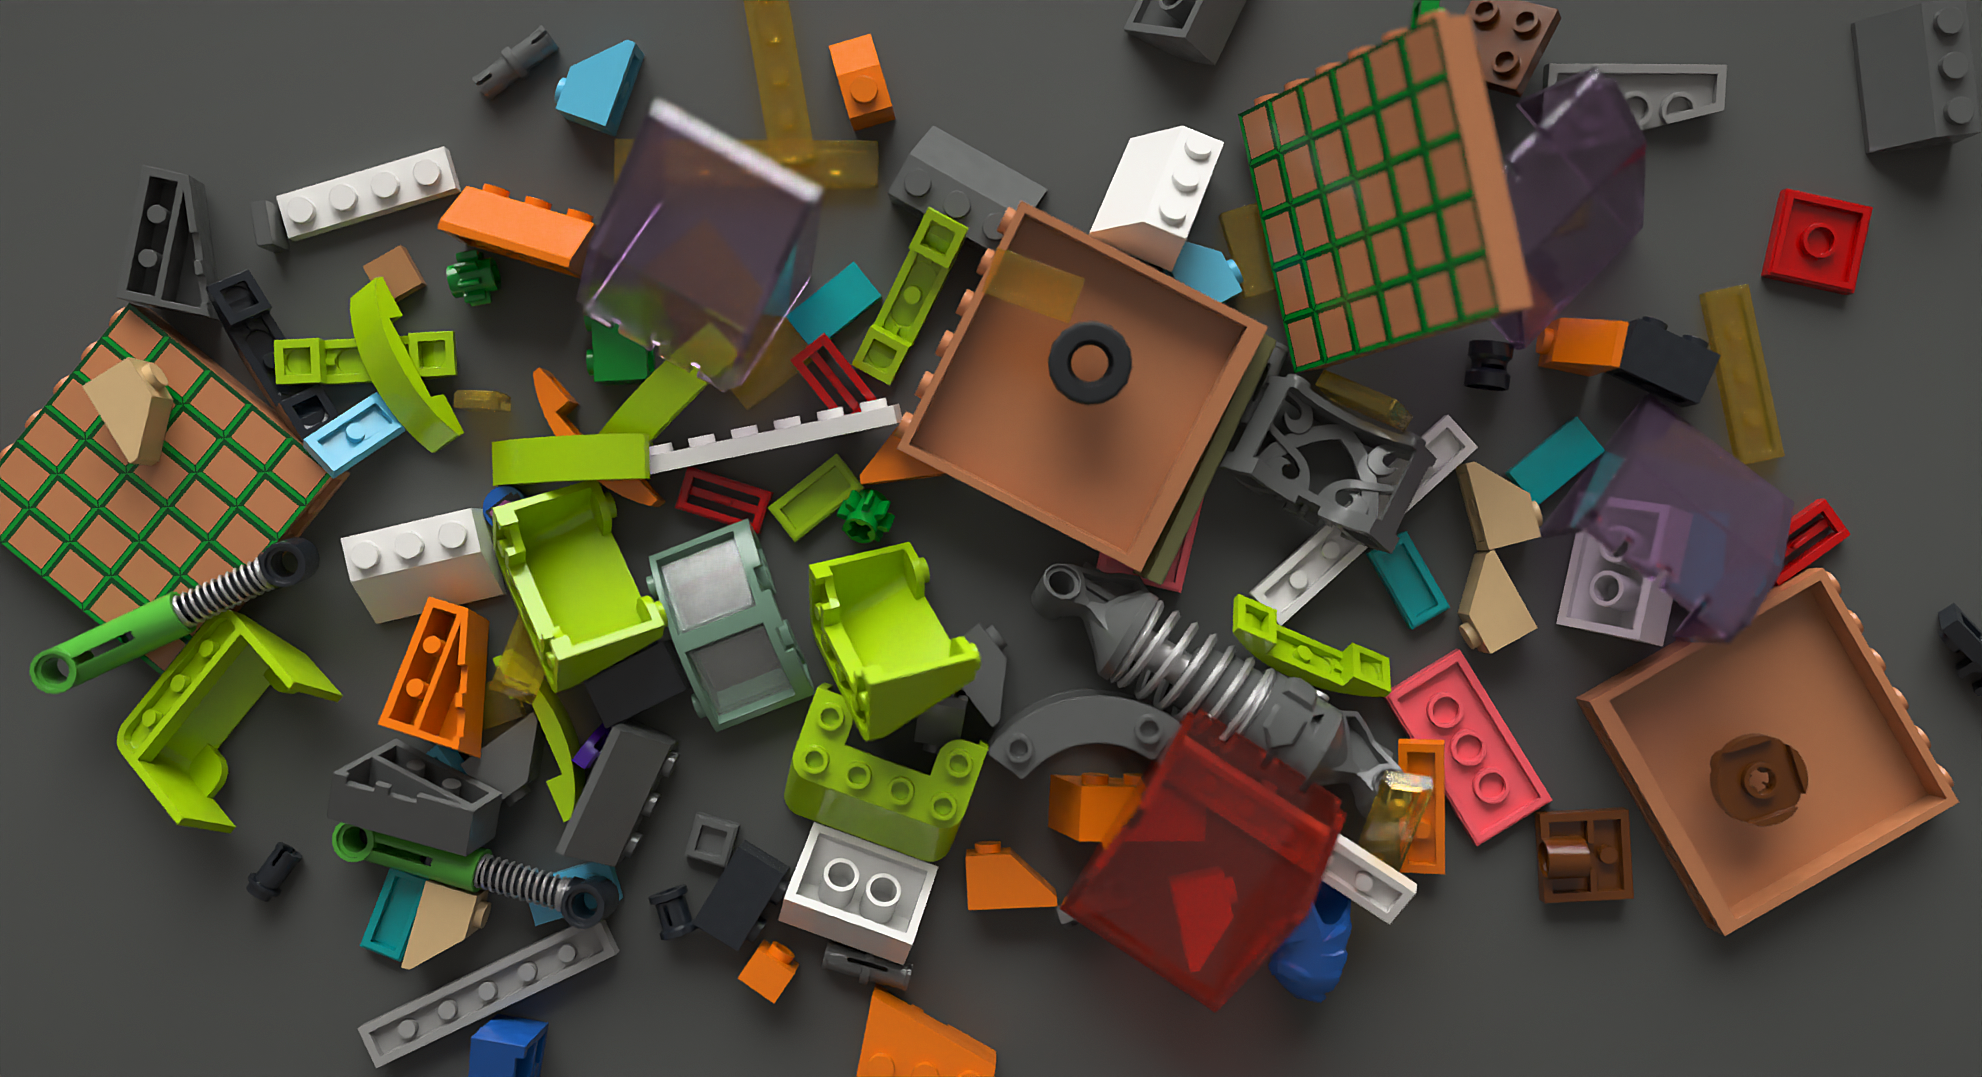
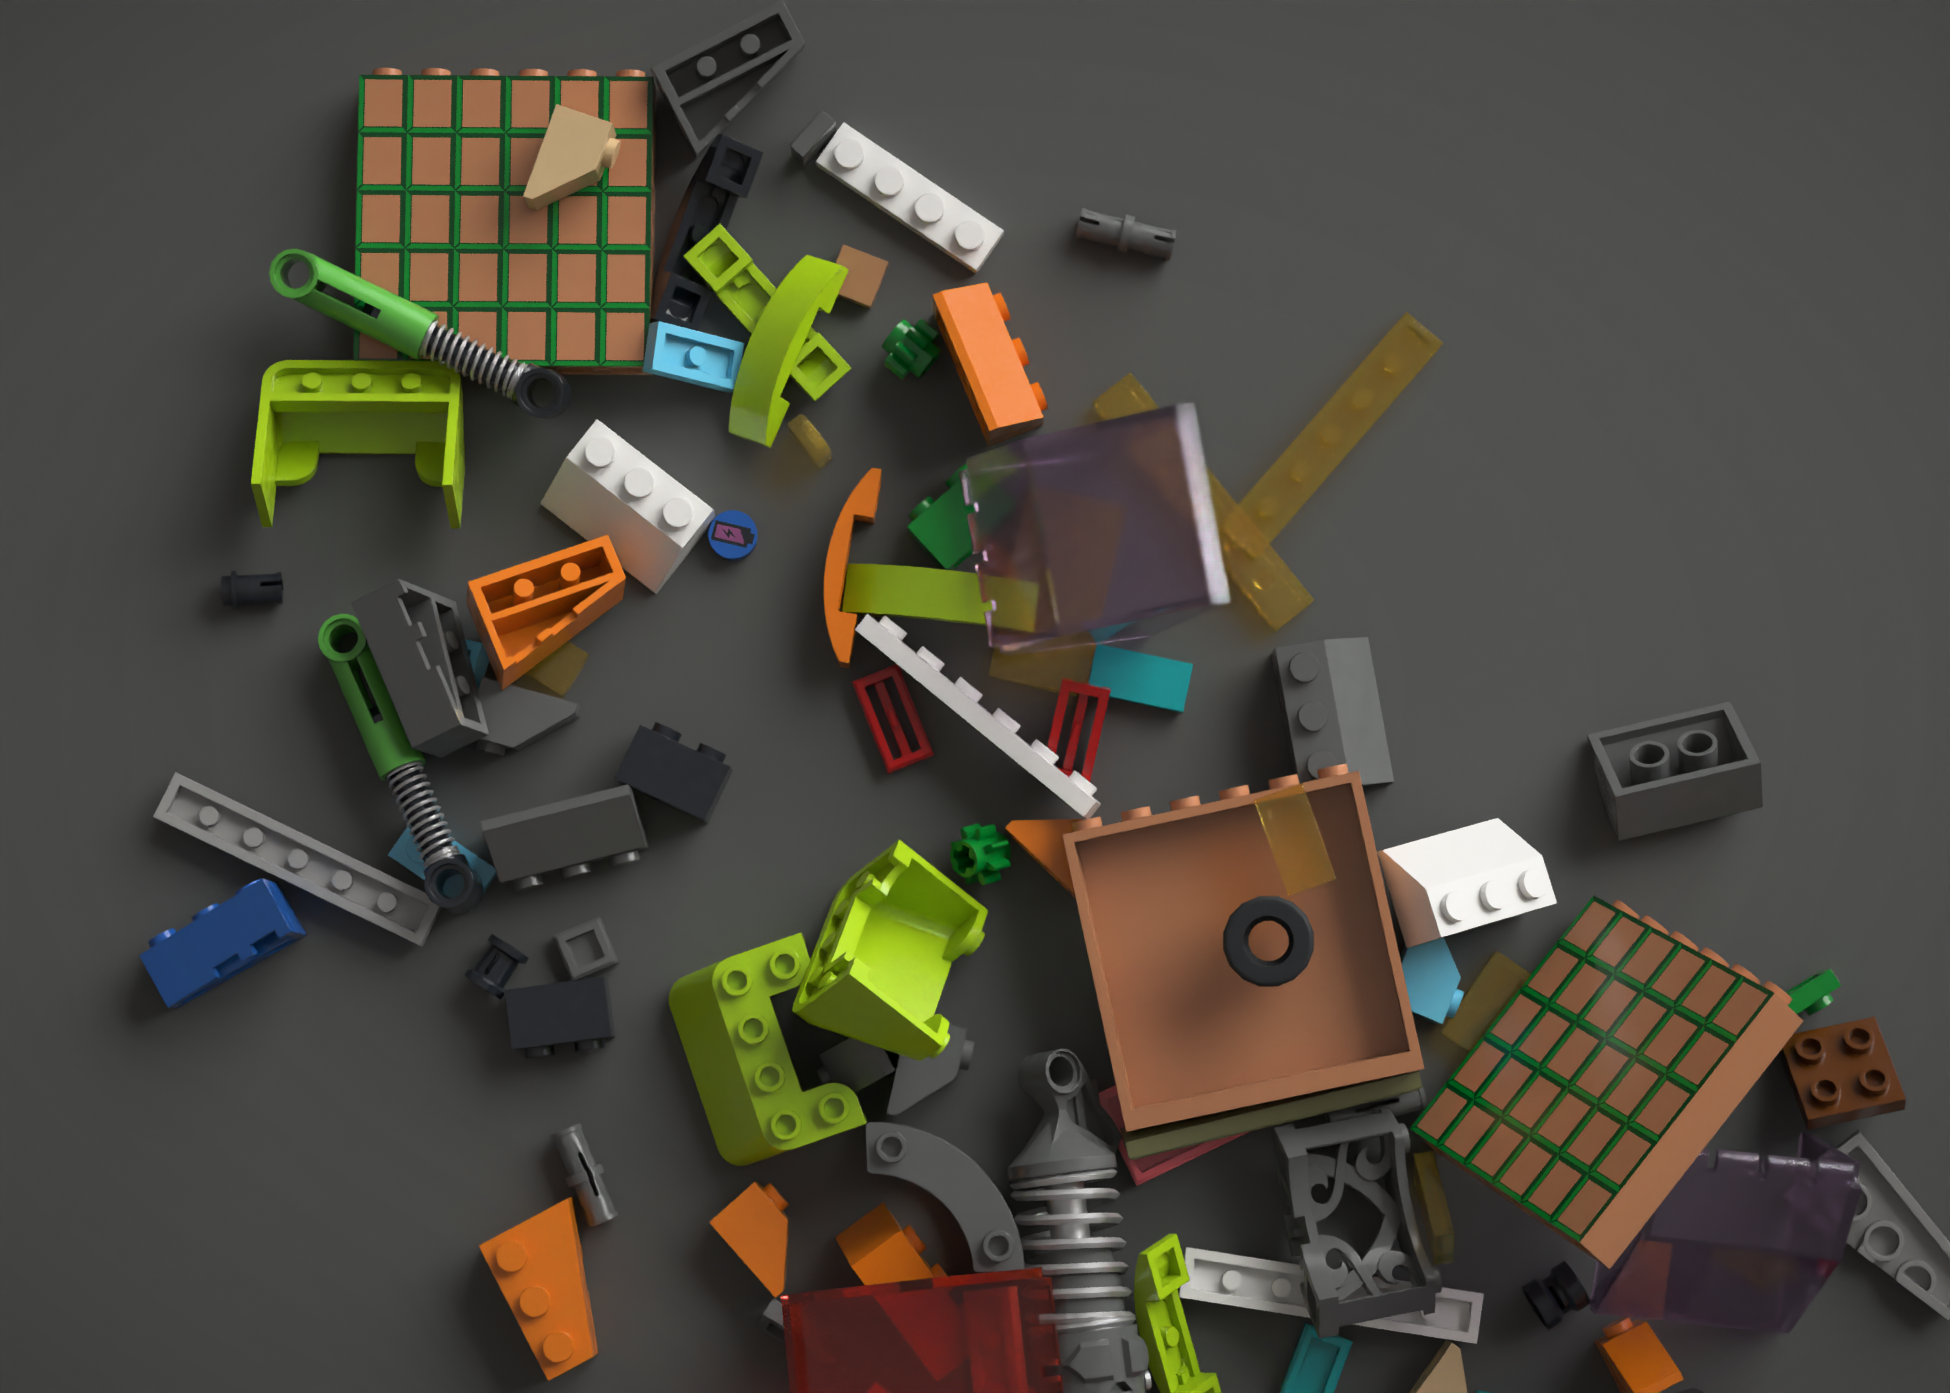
camera: 55 degrees right, 5 degrees down
(394, 915) = (301, 725): teal tile -> none
(444, 919) = (332, 771): tan slope -> none
(518, 669) = (620, 659): clear yellow tile -> none
(564, 744) = (595, 672): lime slope -> none
(571, 459) = (822, 558): lime slope -> none
(573, 582) = (717, 647): lime windscreen -> none
(591, 749) = (589, 780): dark purple tile -> none
(600, 87) = (1163, 325): medium azure slope -> none
(729, 626) = (785, 809): window -> none
(769, 969) = (514, 1091): orange plate -> none
(815, 498) = (959, 797): lime tile -> none
(858, 893) = (643, 1115): white slope -> none
(862, 82) = (1354, 545): orange slope -> none
(911, 296) = (1202, 739): lime slope -> none

